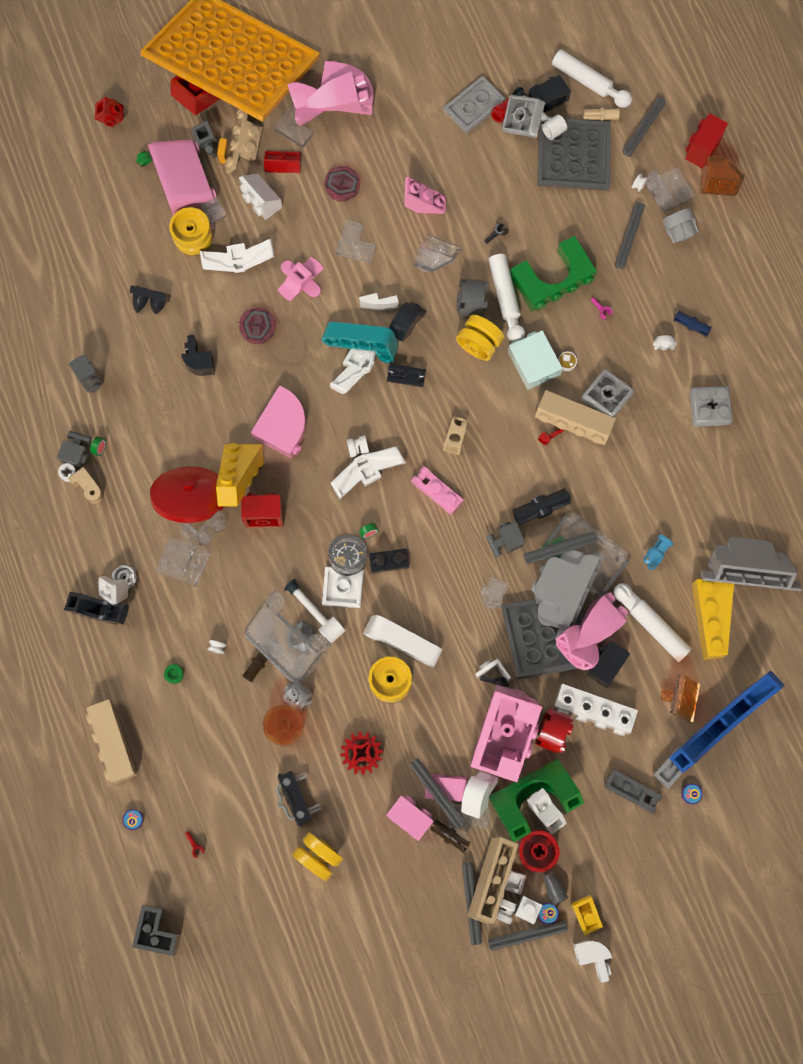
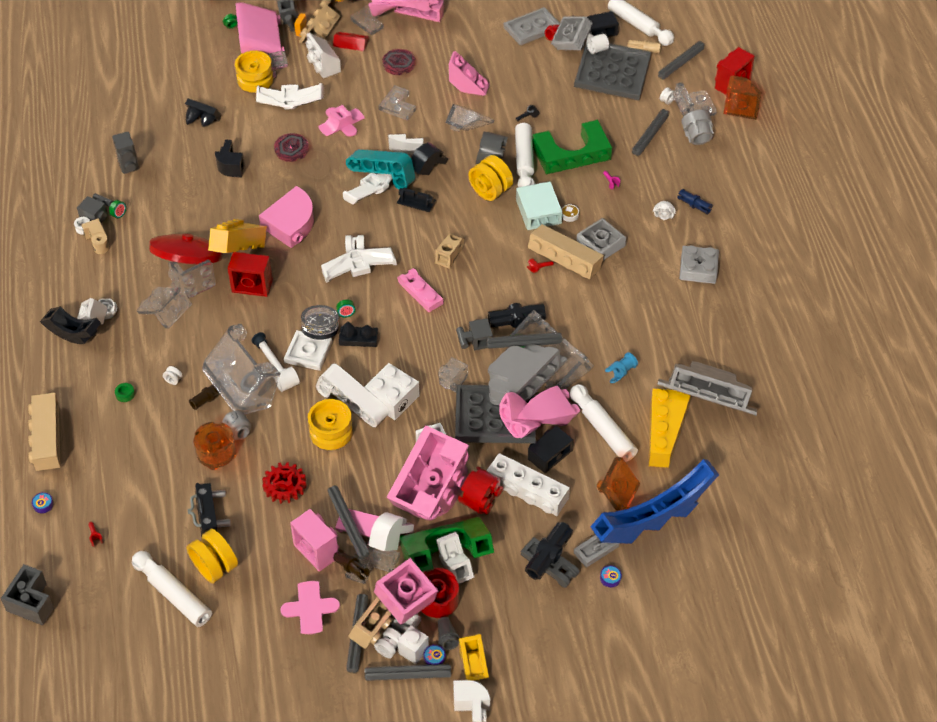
camera: 10 degrees right, 25 degrees down
(286, 893) = (172, 589): none -> white piece
(423, 890) = (310, 607): none -> bright pink piece
(440, 625) = (394, 389): none -> white brick
(515, 873) = (405, 591): none -> bright pink brick
(633, 786) = (548, 551): none -> black piece

